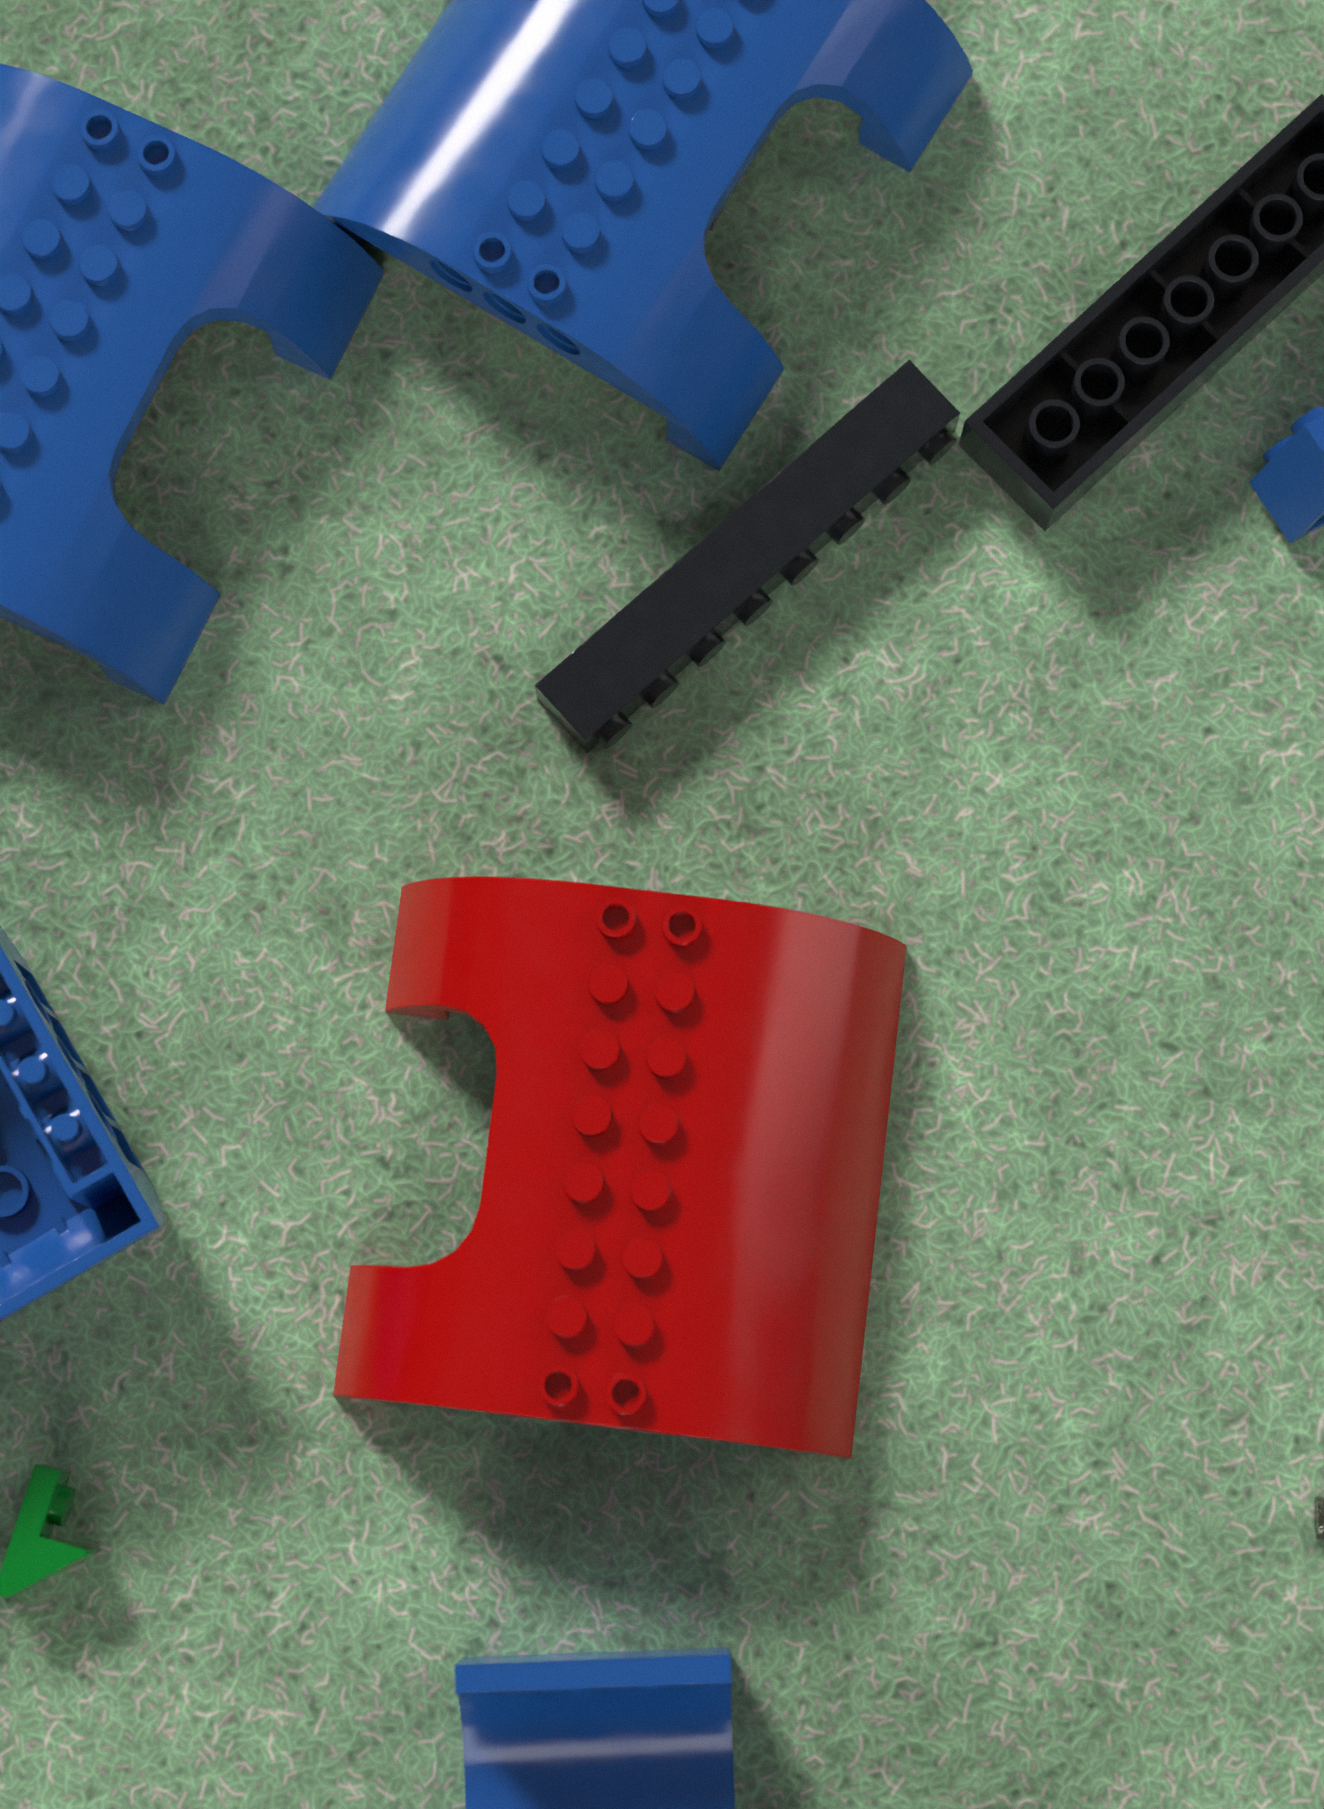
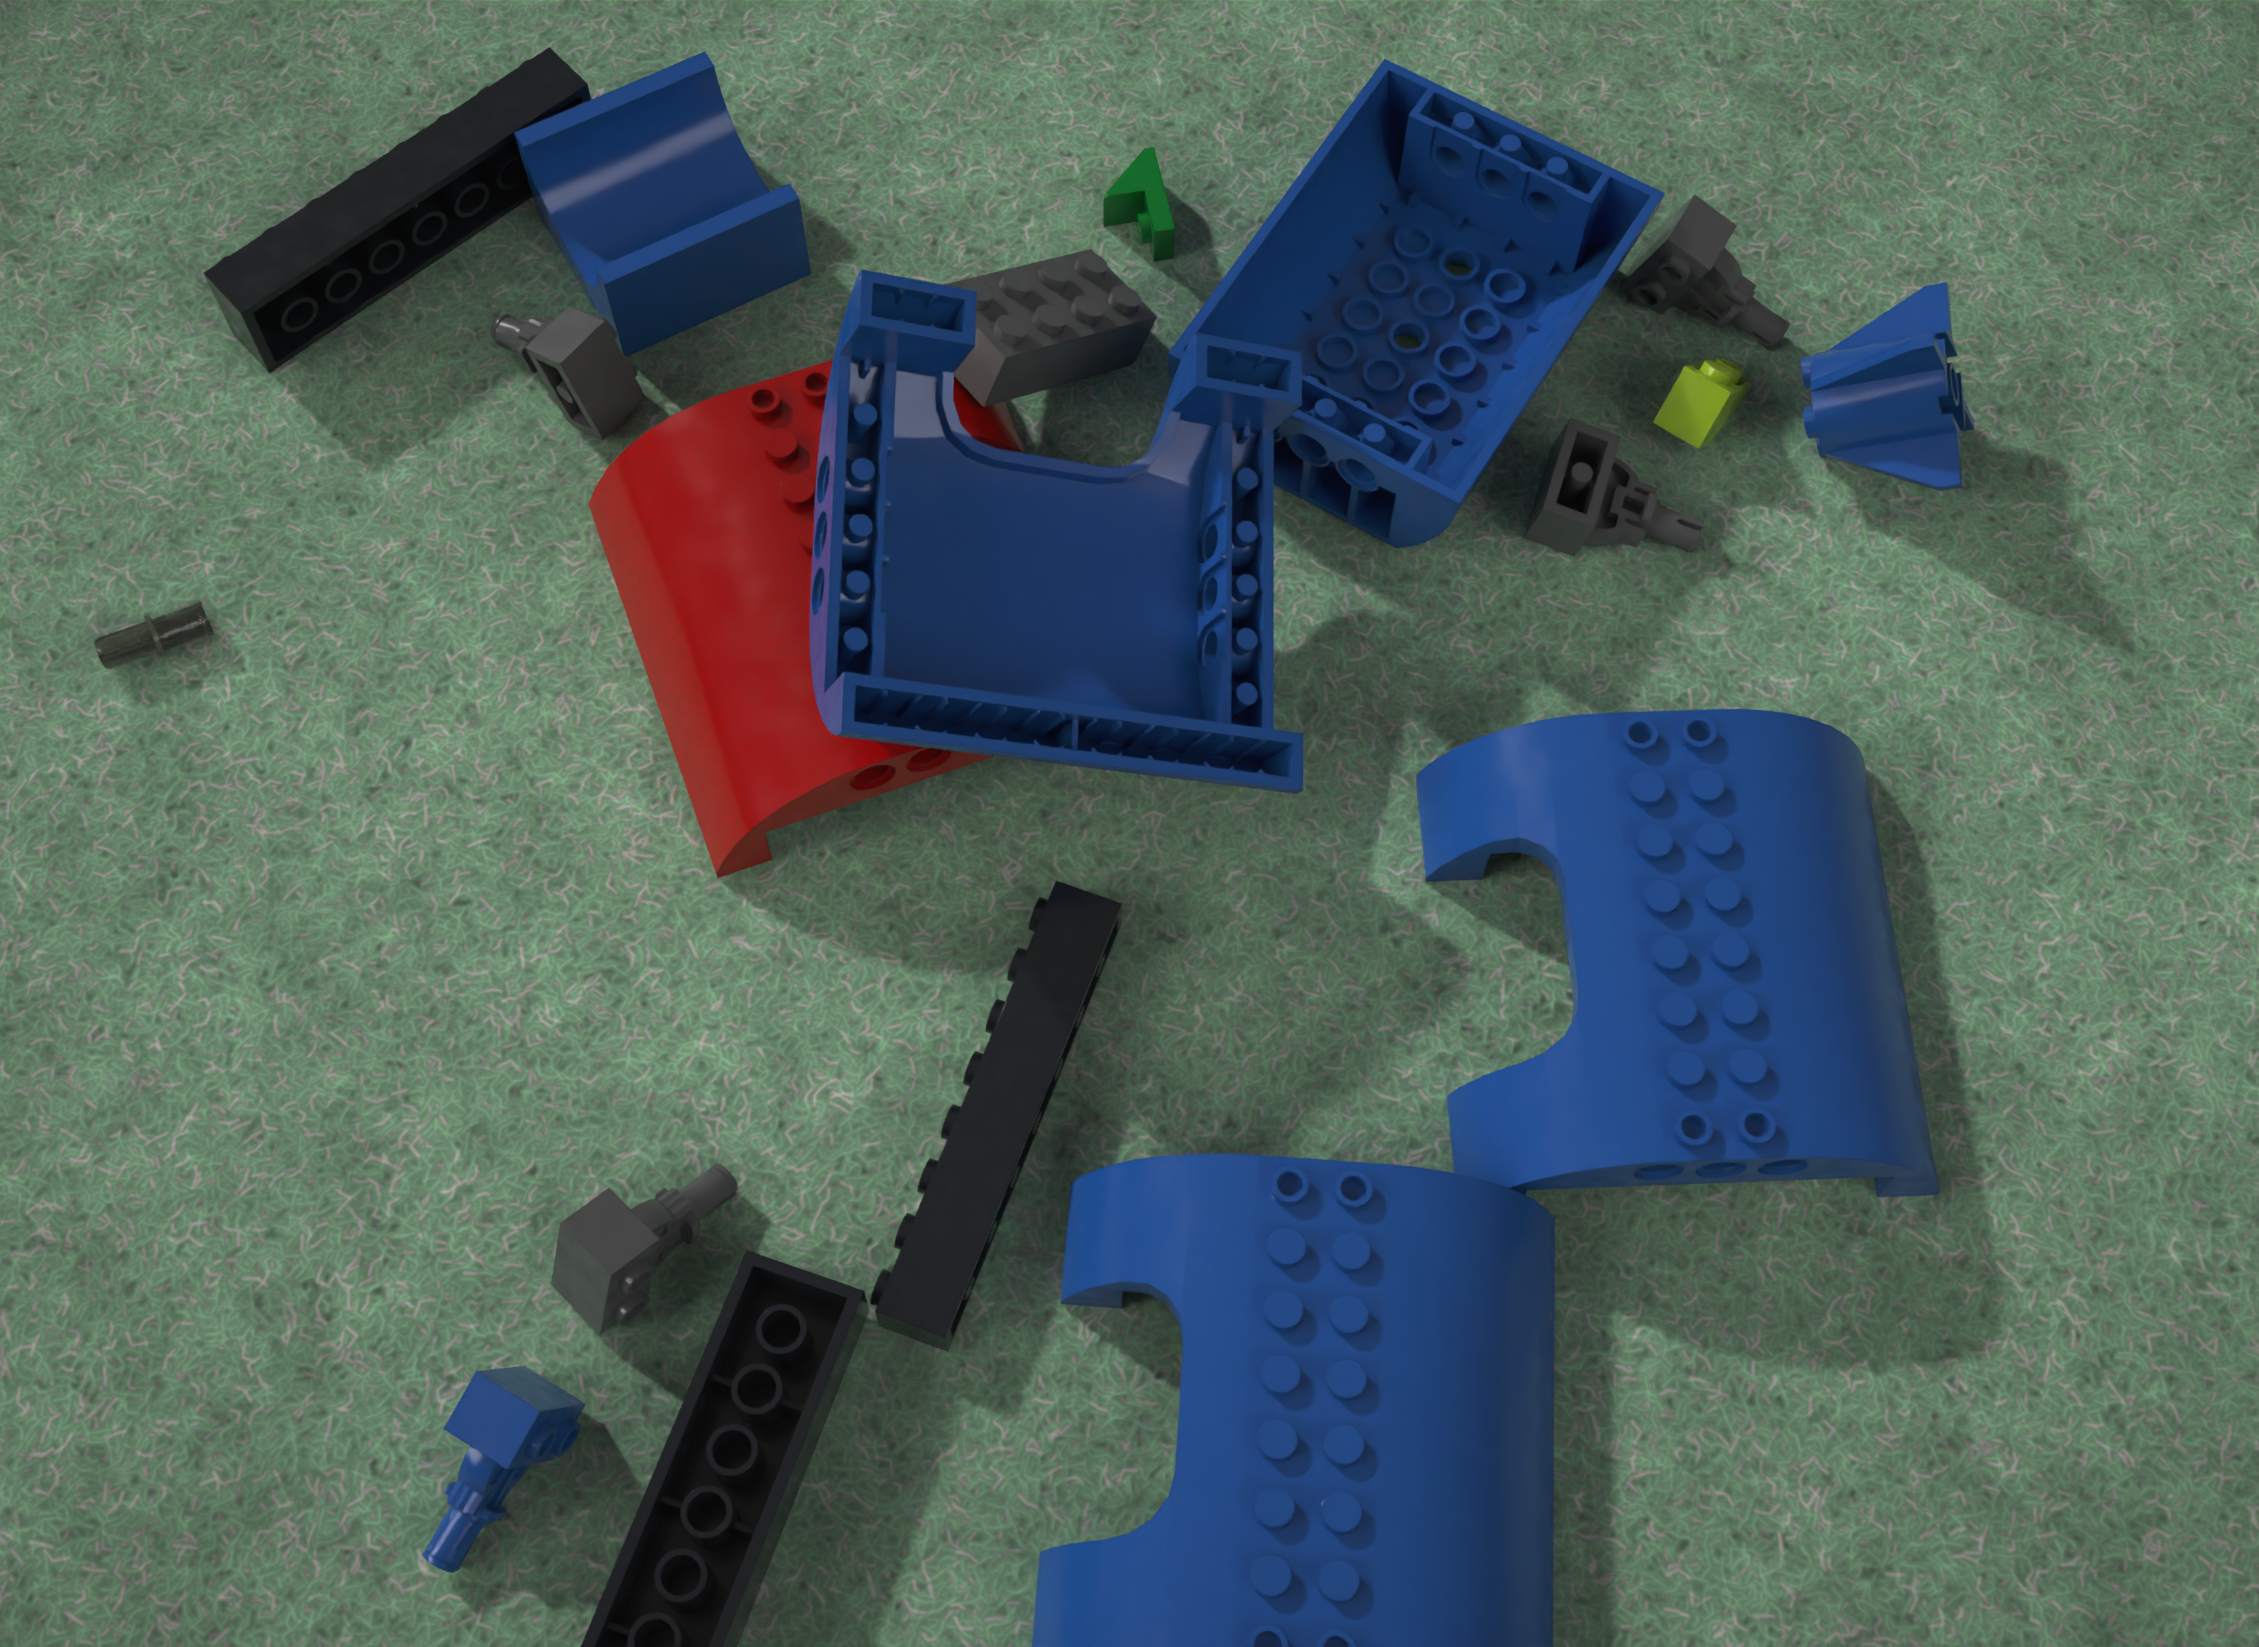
camera: 150 degrees right, 15 degrees down
(265, 1387) = (1050, 326): none -> dark grey brick
(456, 957) = (1041, 595): none -> blue slope
(794, 1615) = (578, 364): none -> dark grey brick
(1173, 572) = (613, 1251): none -> dark grey brick

